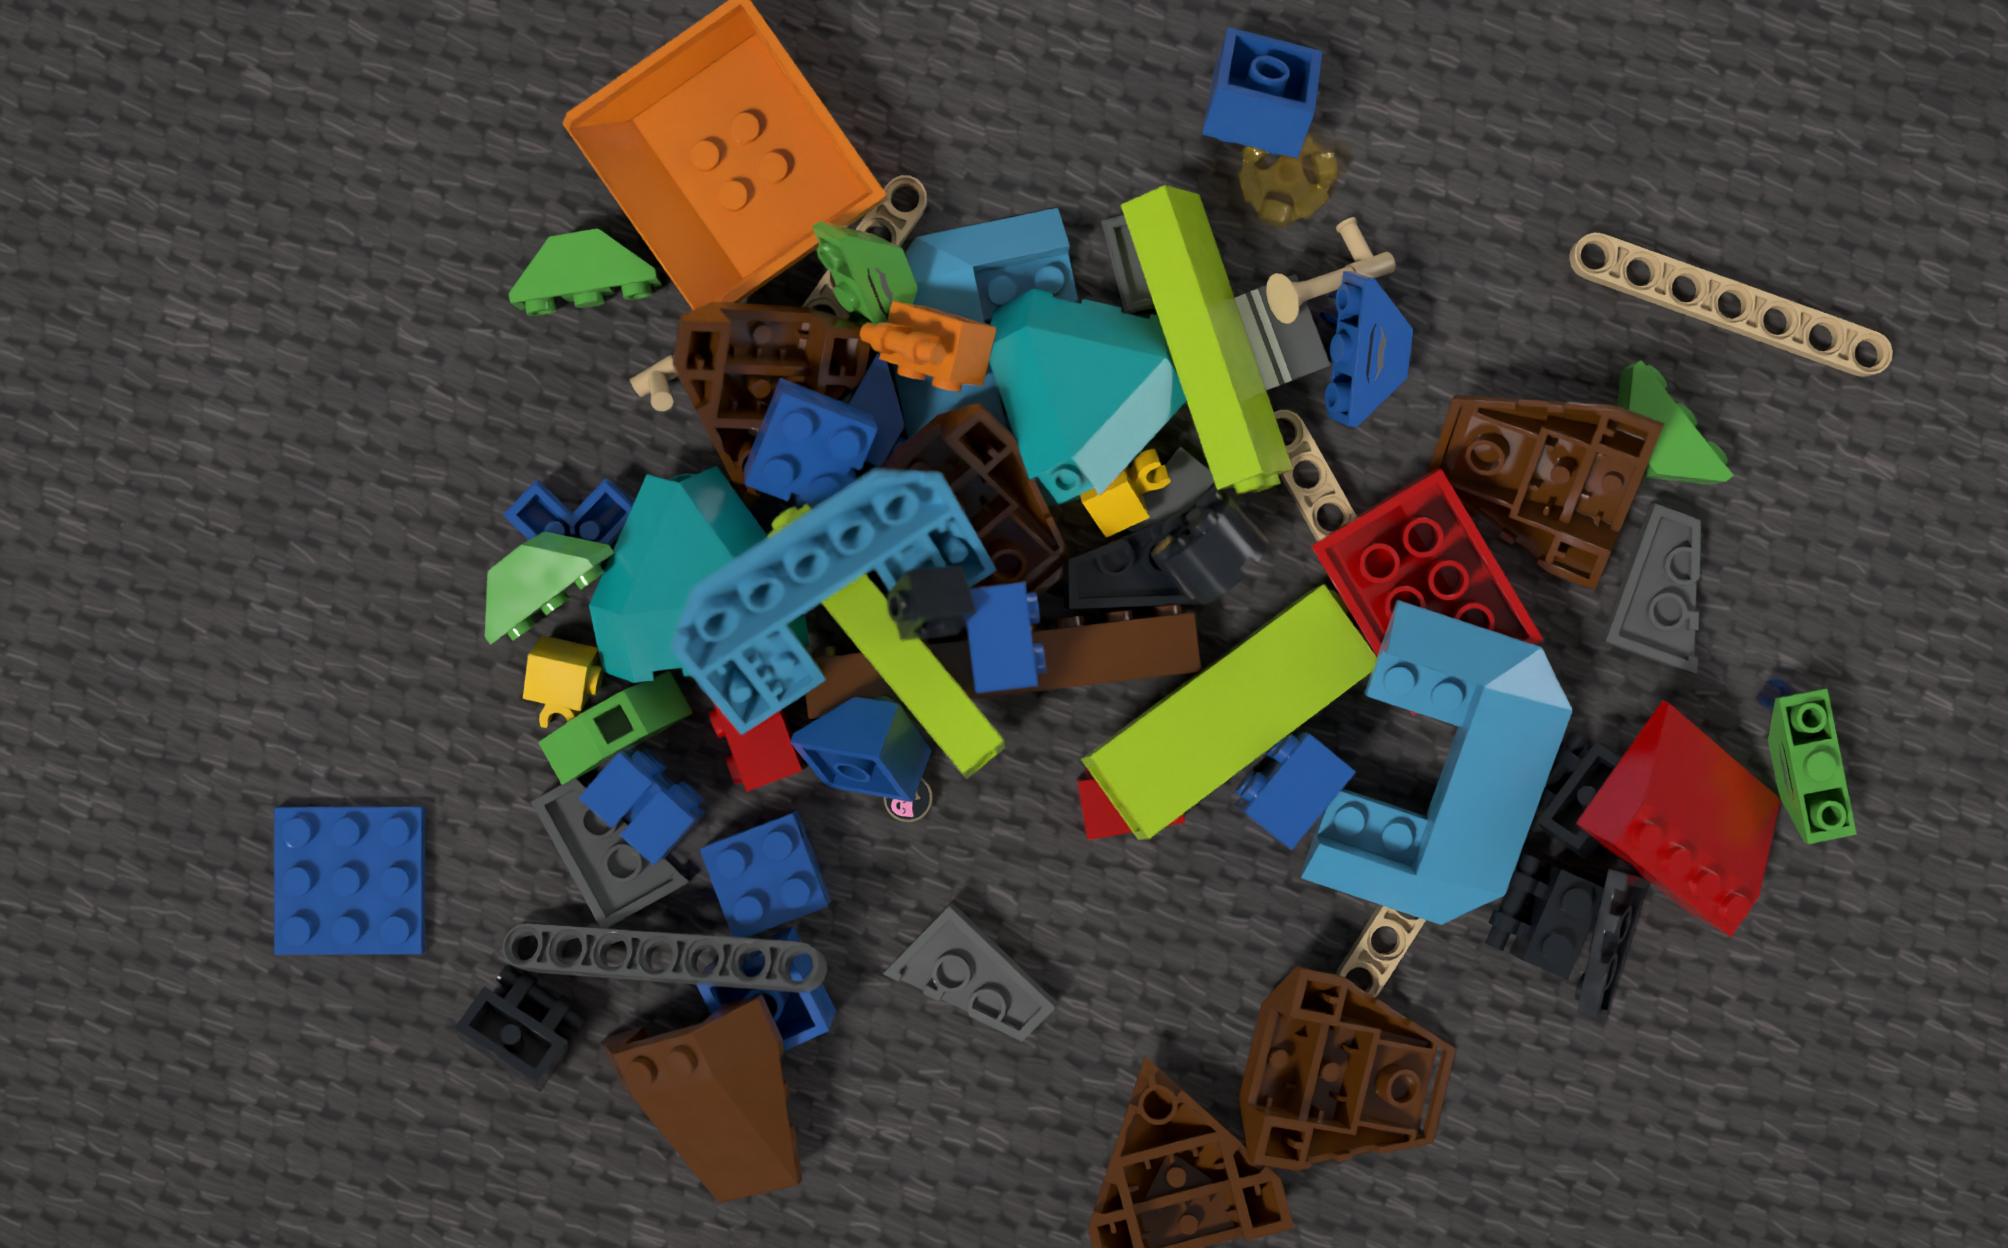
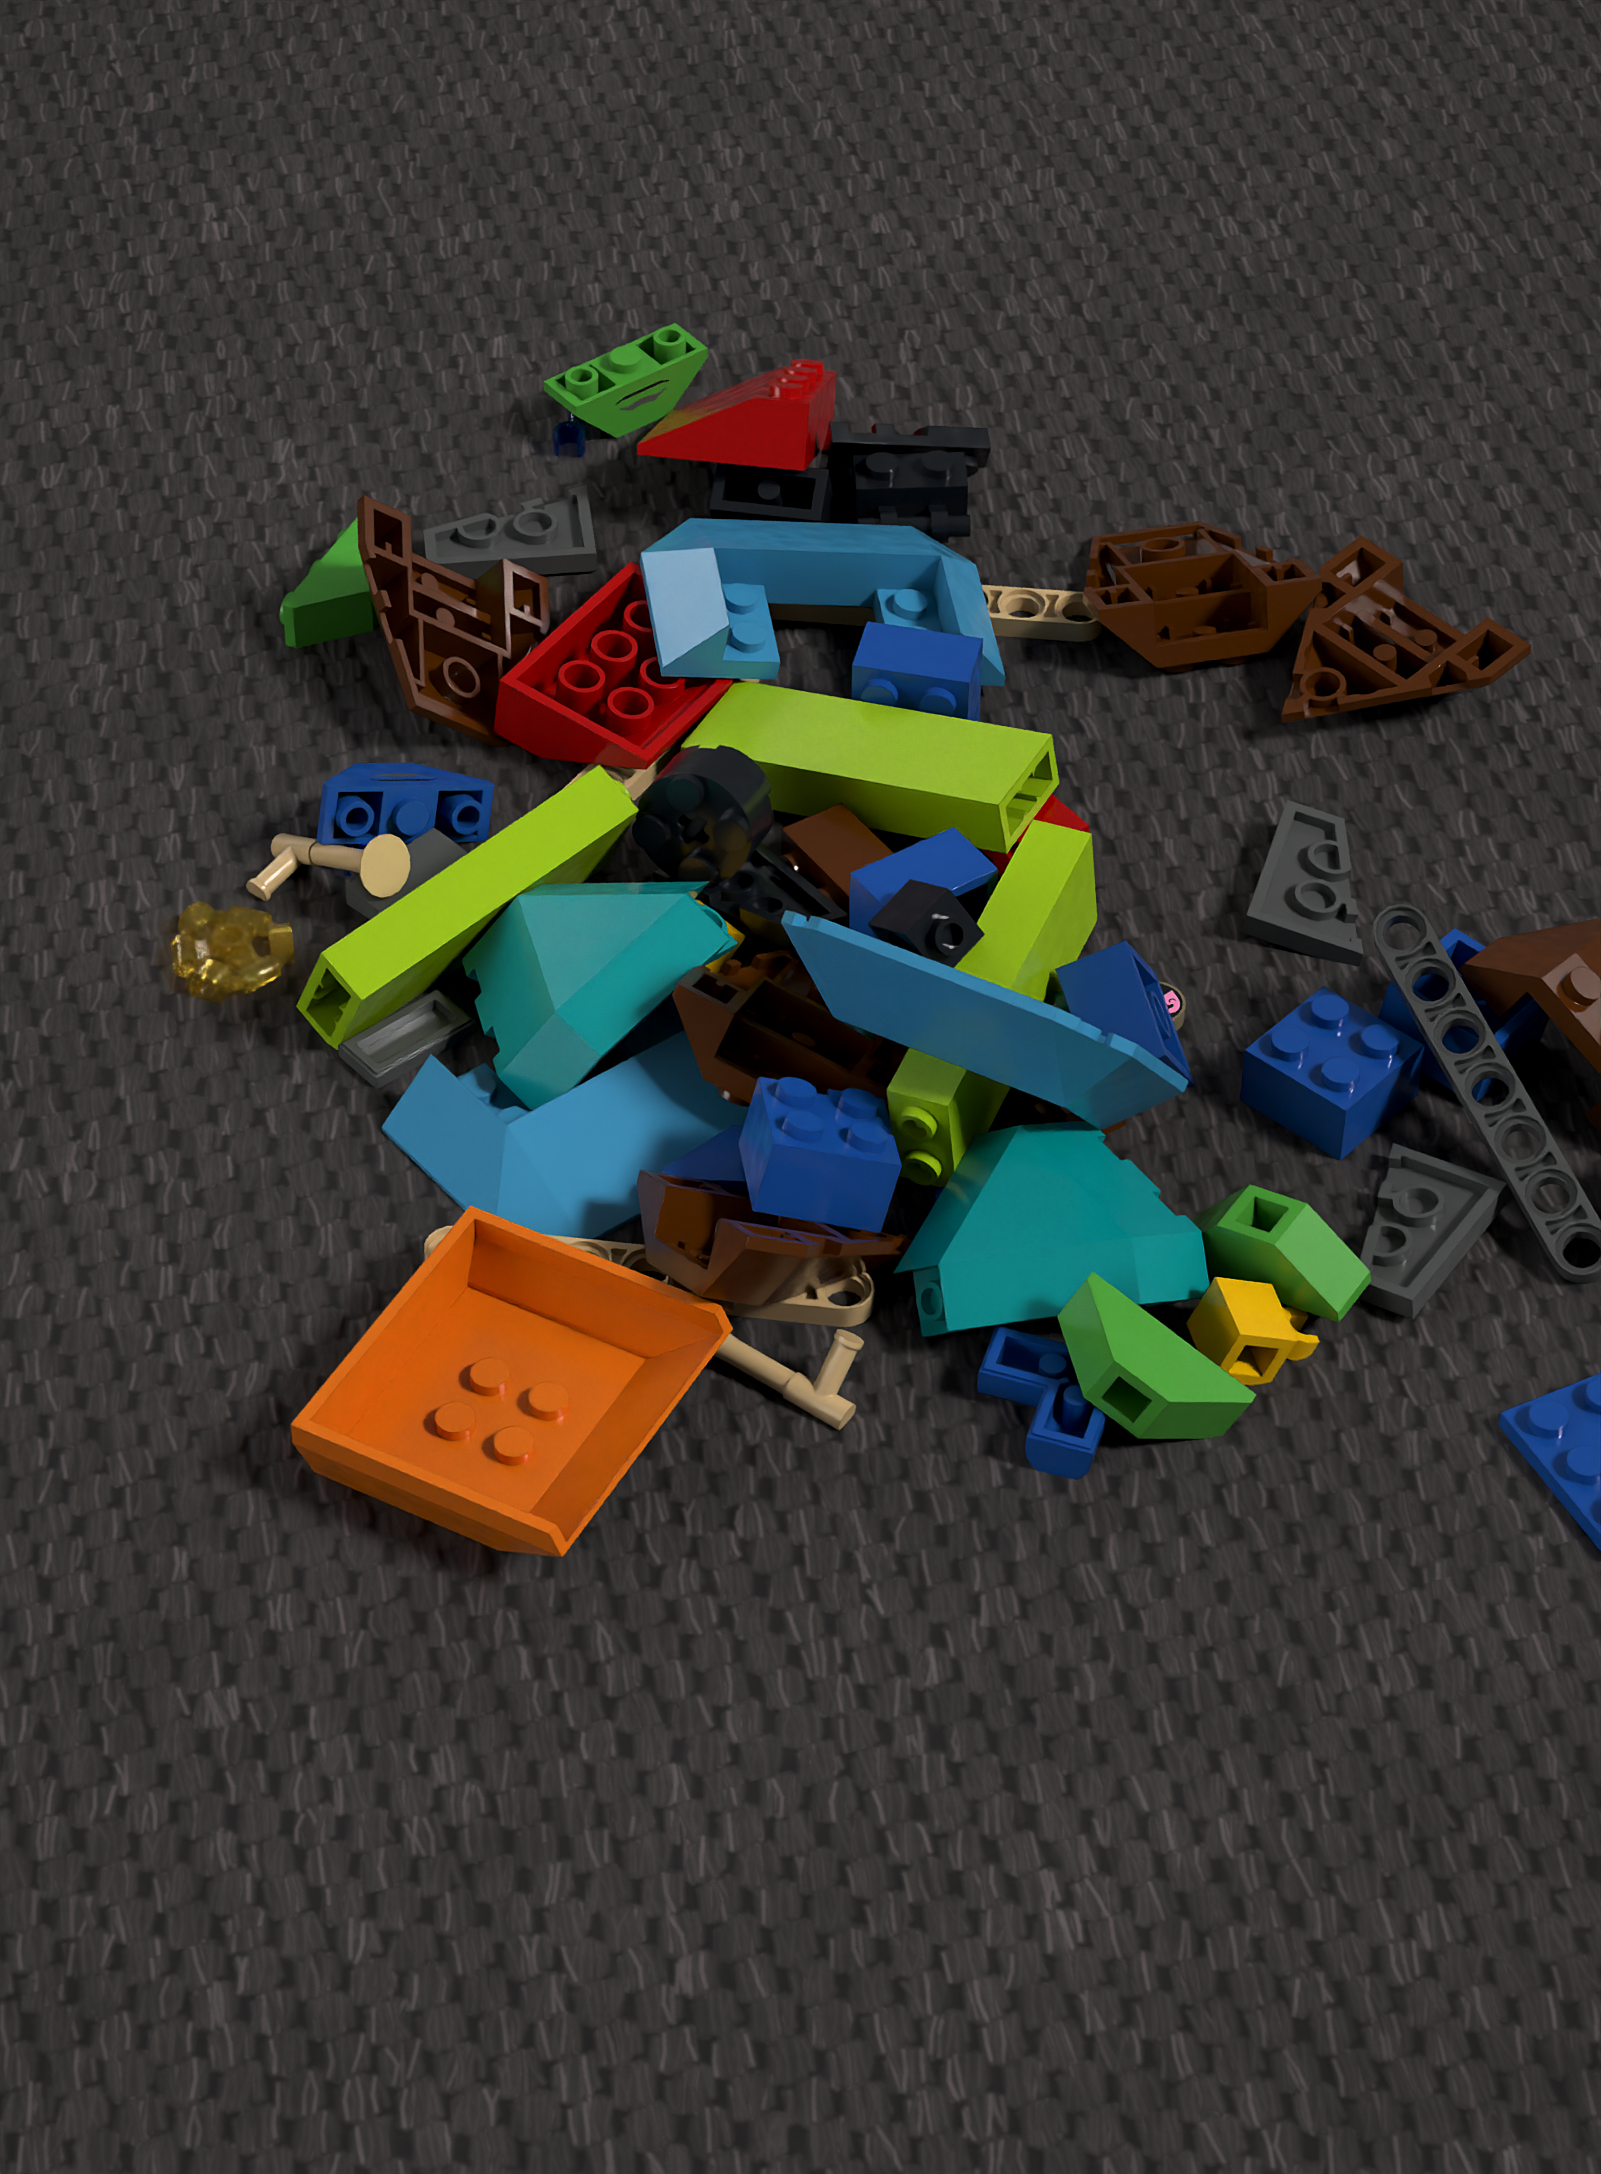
camera: 115 degrees left, 45 degrees down
(581, 270) = (739, 1509): bright green slope -> none
(651, 803) = (1338, 1161): blue piece -> none
(760, 753) = (1186, 1138): red brick -> none
(866, 272) = (582, 1204): bright green slope -> none
(932, 344) = (622, 1103): orange brick -> none
(1263, 93) = (152, 966): blue brick -> none
(1753, 305) = (180, 608): tan beam -> none

